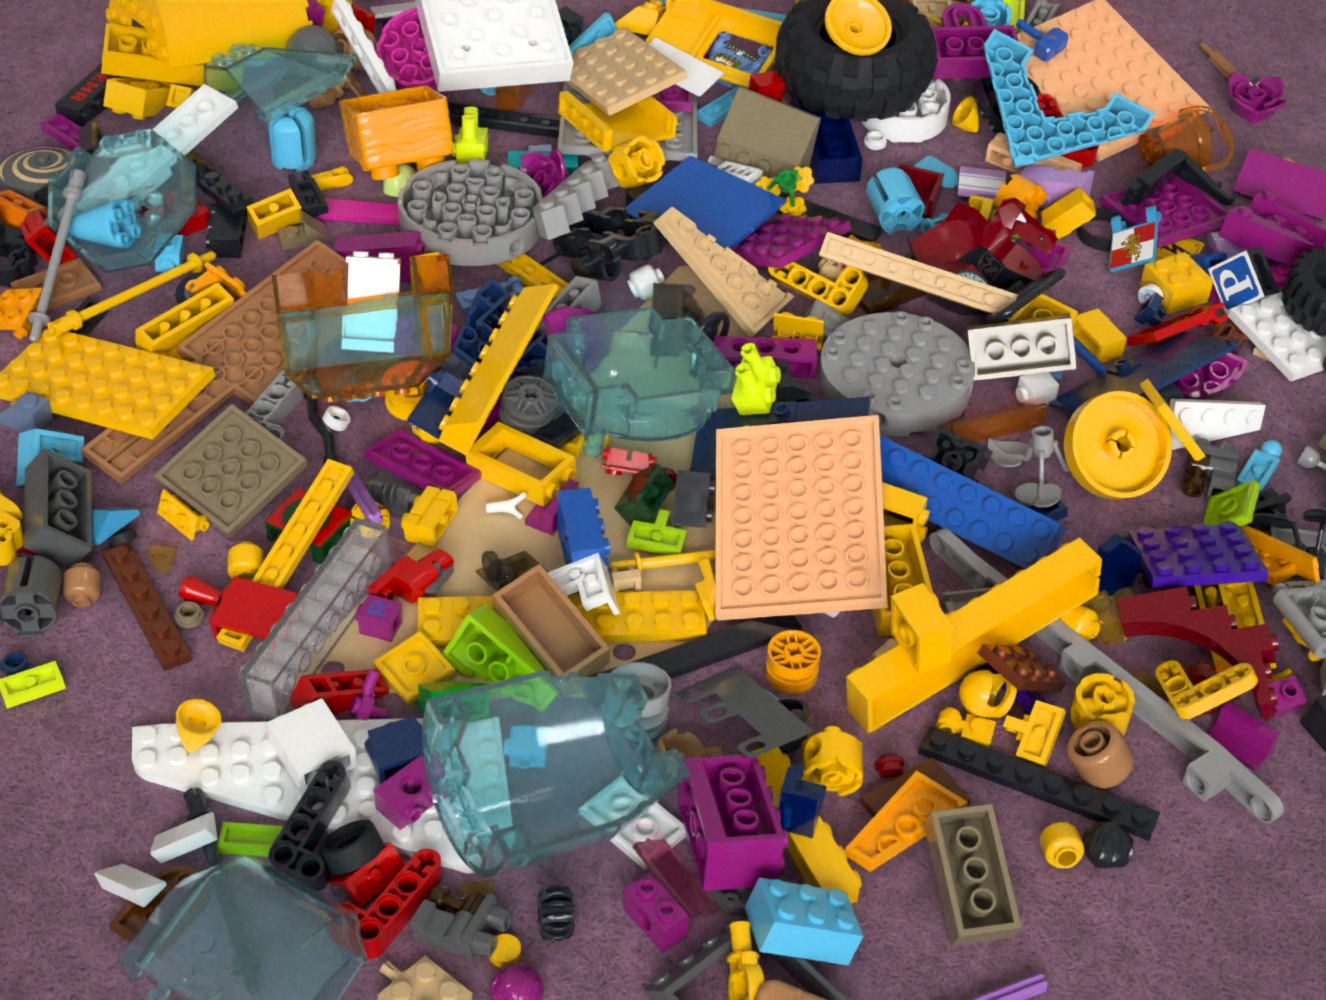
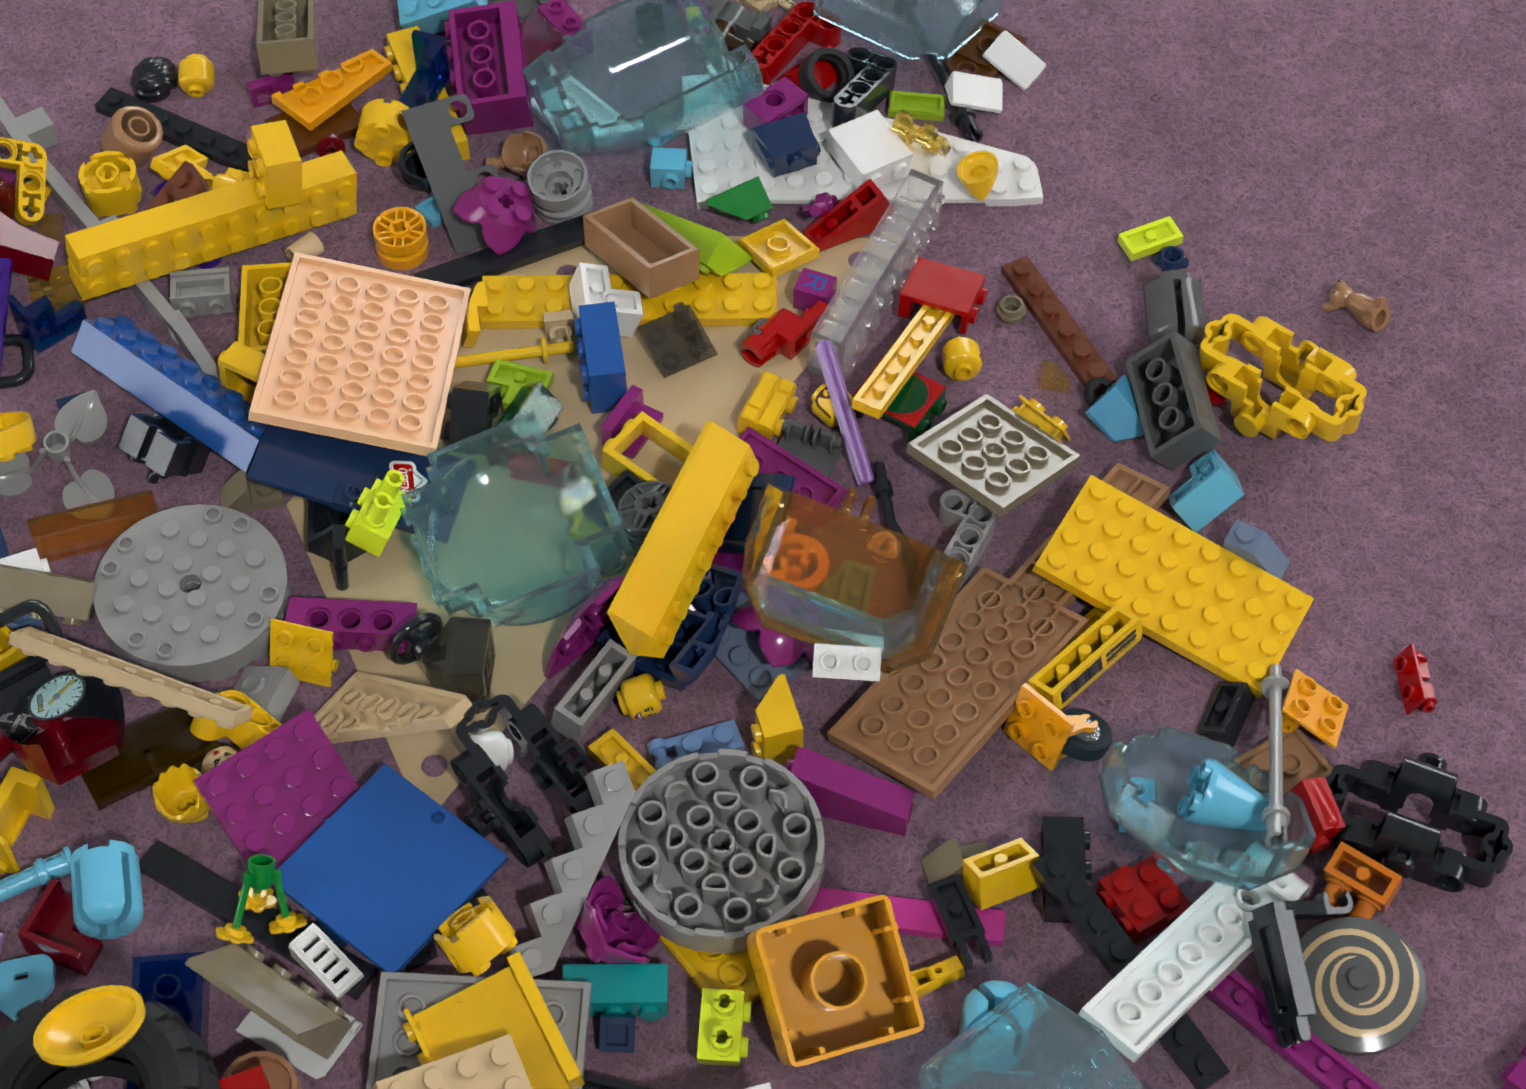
camera: 175 degrees left, 10 degrees up
(75, 319) = (1228, 673): yellow bar -> none
(81, 584) = (1127, 334): medium nougat head -> none
(199, 591) = (1006, 330): red cone -> none
(252, 761) = (927, 137): none -> clear yellow plate
(506, 505) = (683, 429): white bar -> none
(697, 672) = (501, 209): none -> magenta brick

